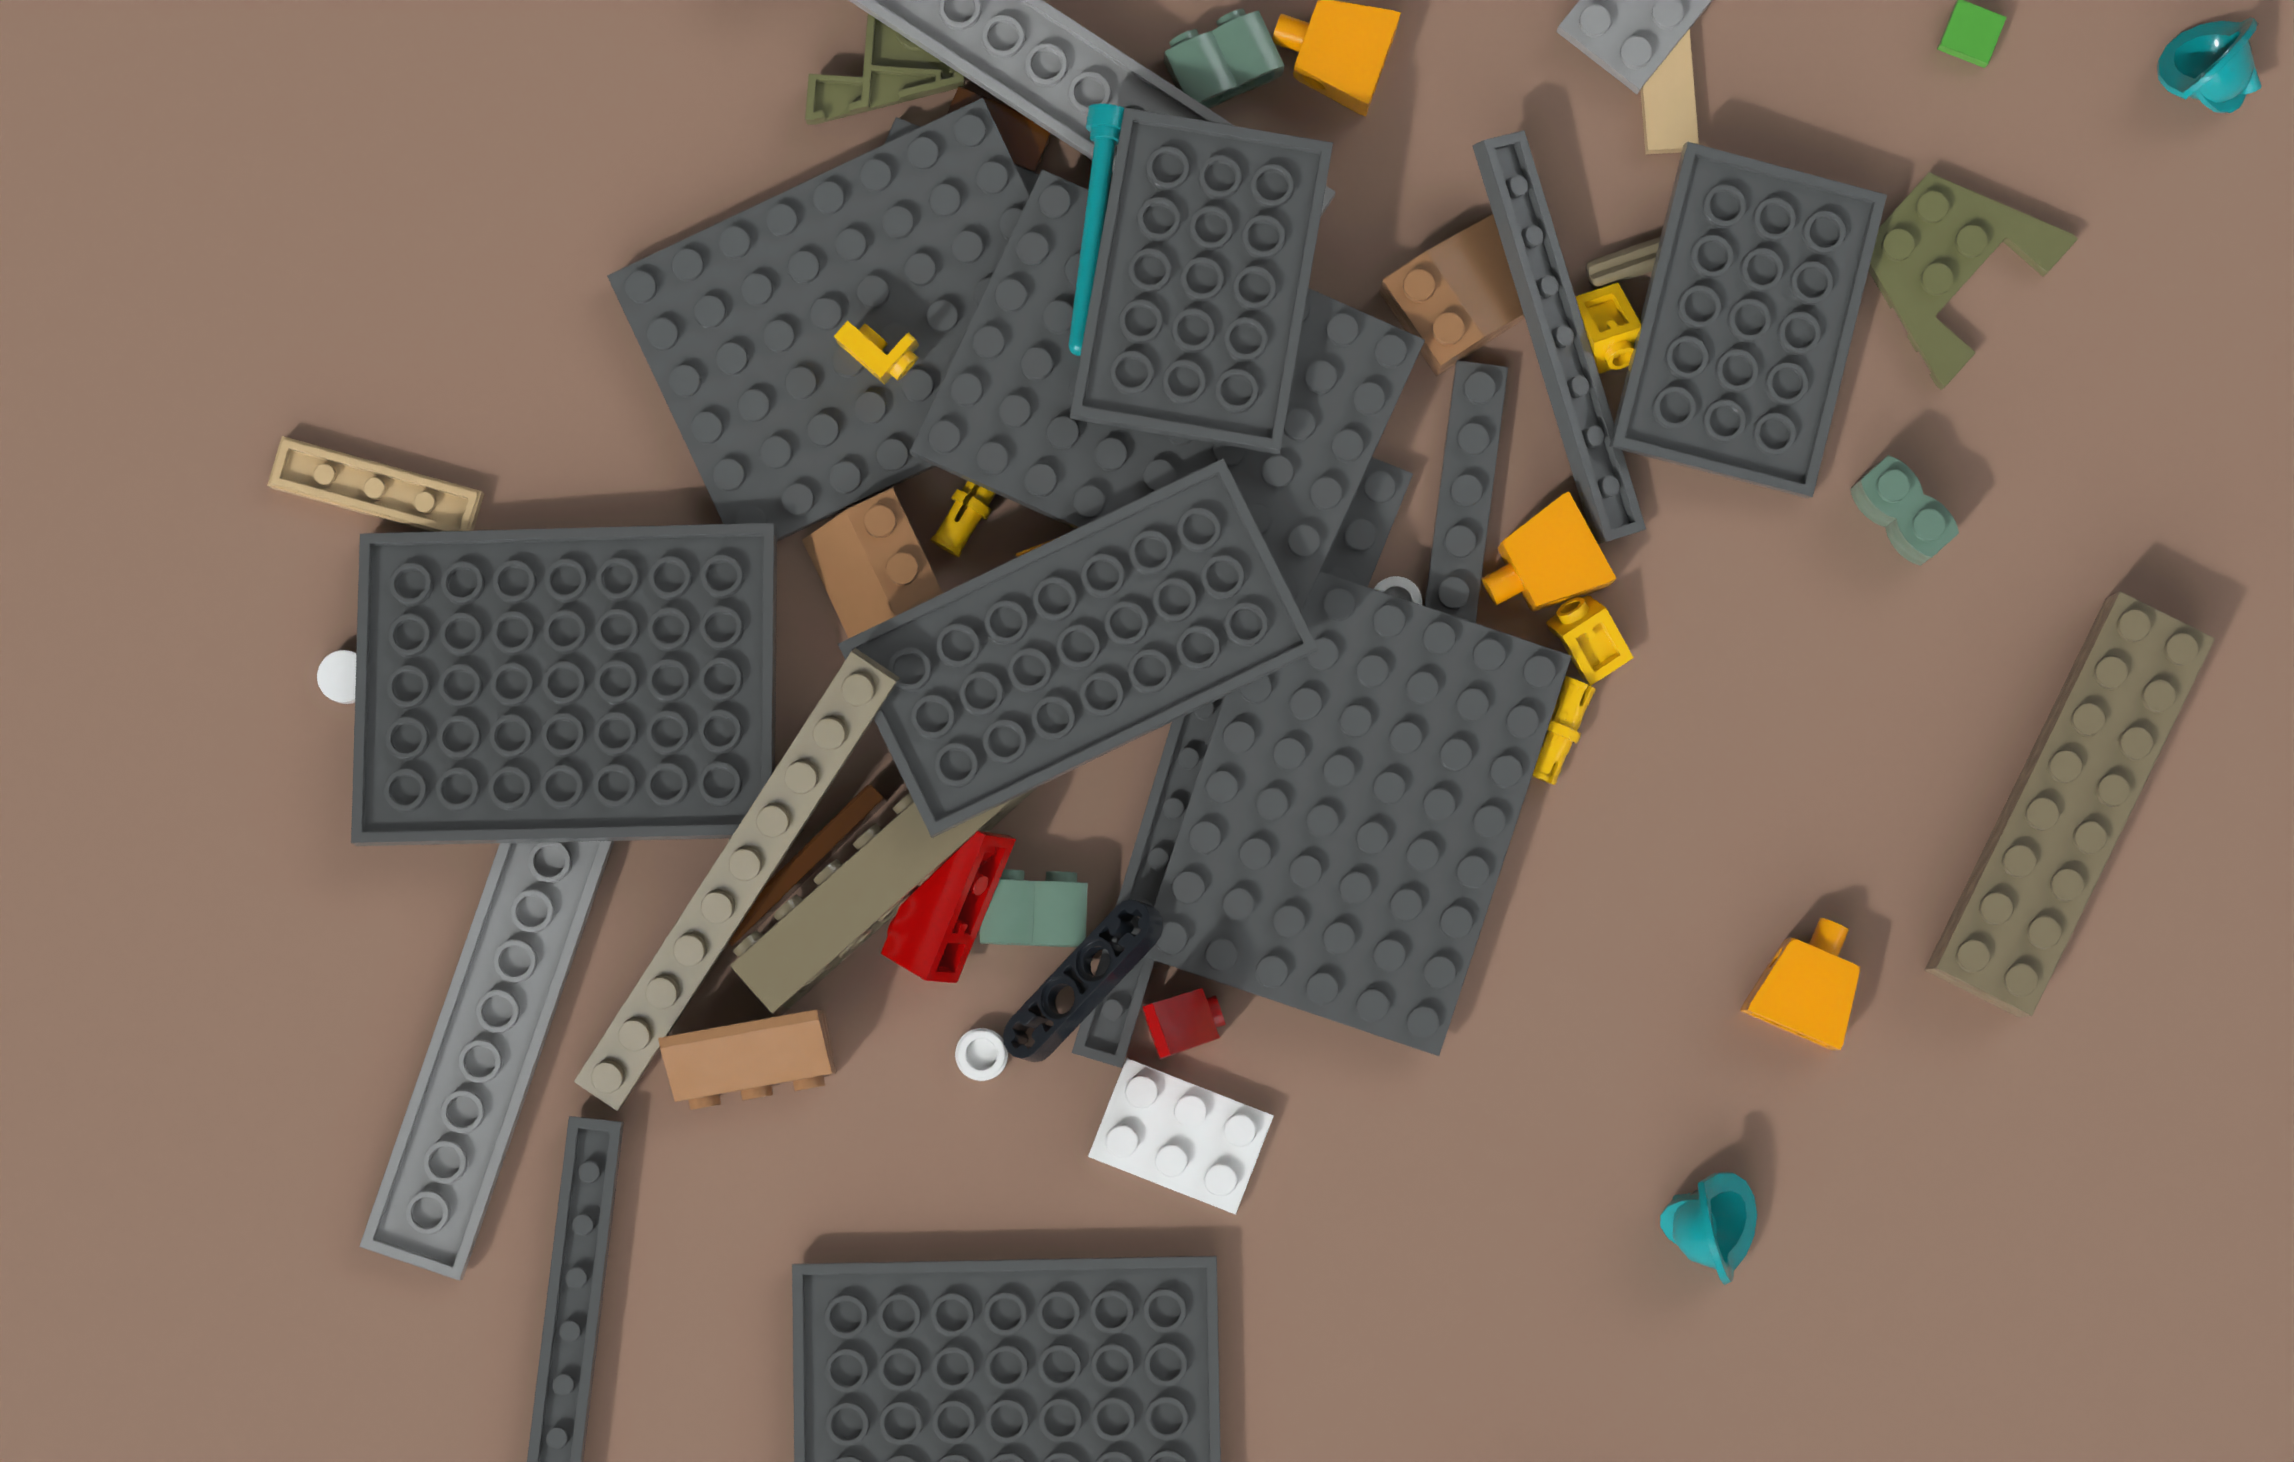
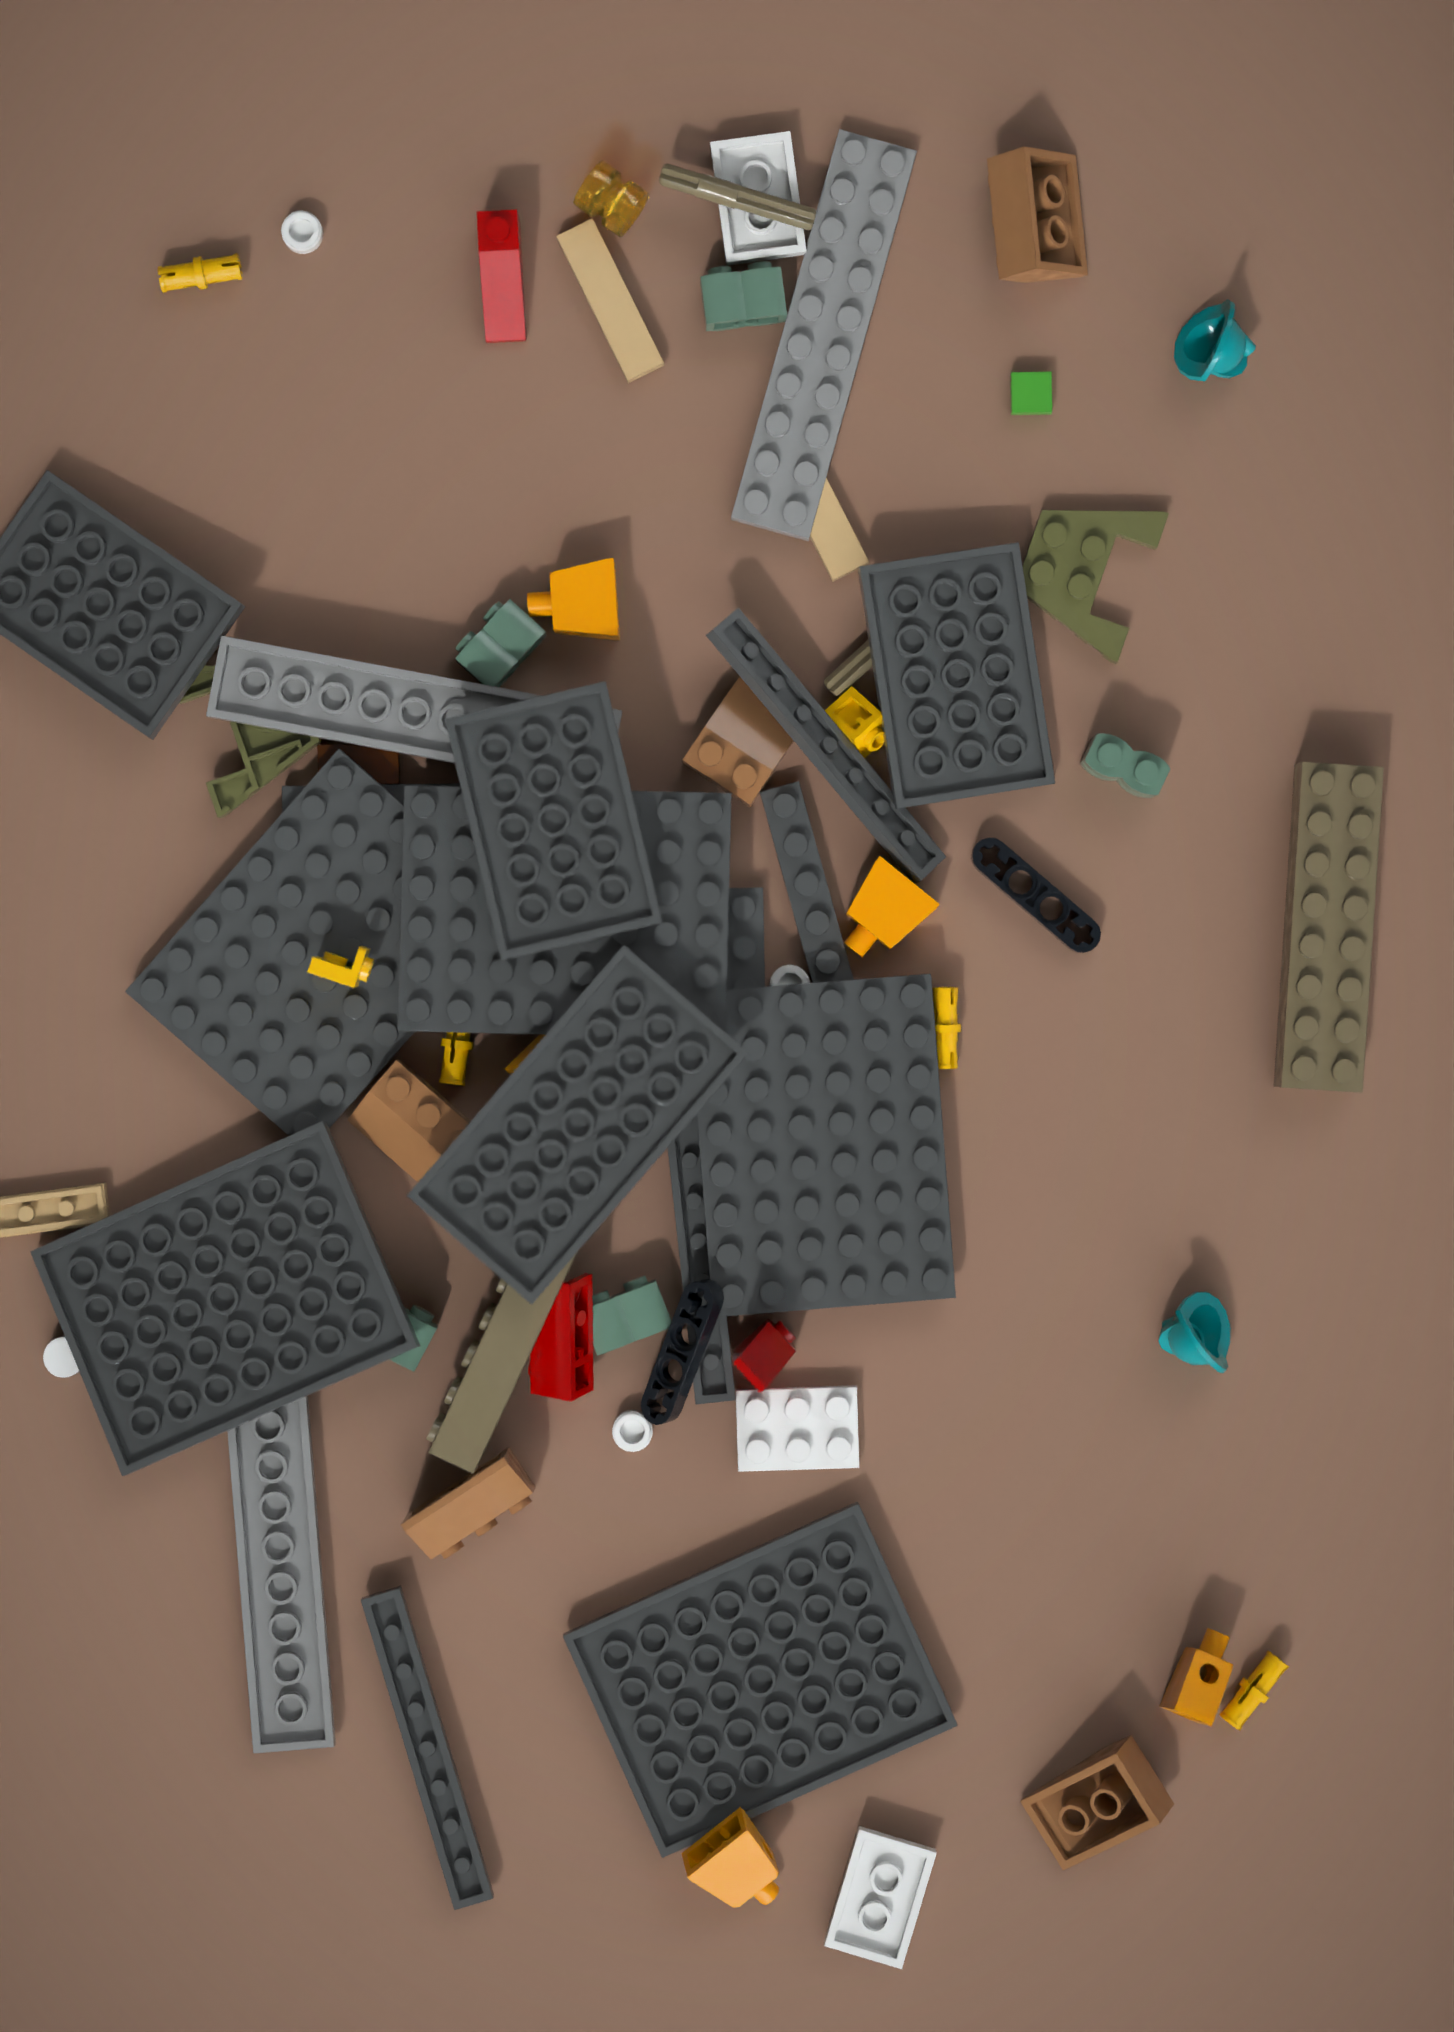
camera: 25 degrees left, 5 degrees up
(737, 878) = (407, 1386): dark tan plate -> none
(810, 859) = (448, 1353): reddish brown tile -> none
(1104, 124) = (437, 739): teal piece -> none
(1590, 638) = (938, 952): yellow bracket -> none
(1725, 624) = (1032, 899): none -> black beam
(1808, 987) = (1196, 1136): light orange torso -> none

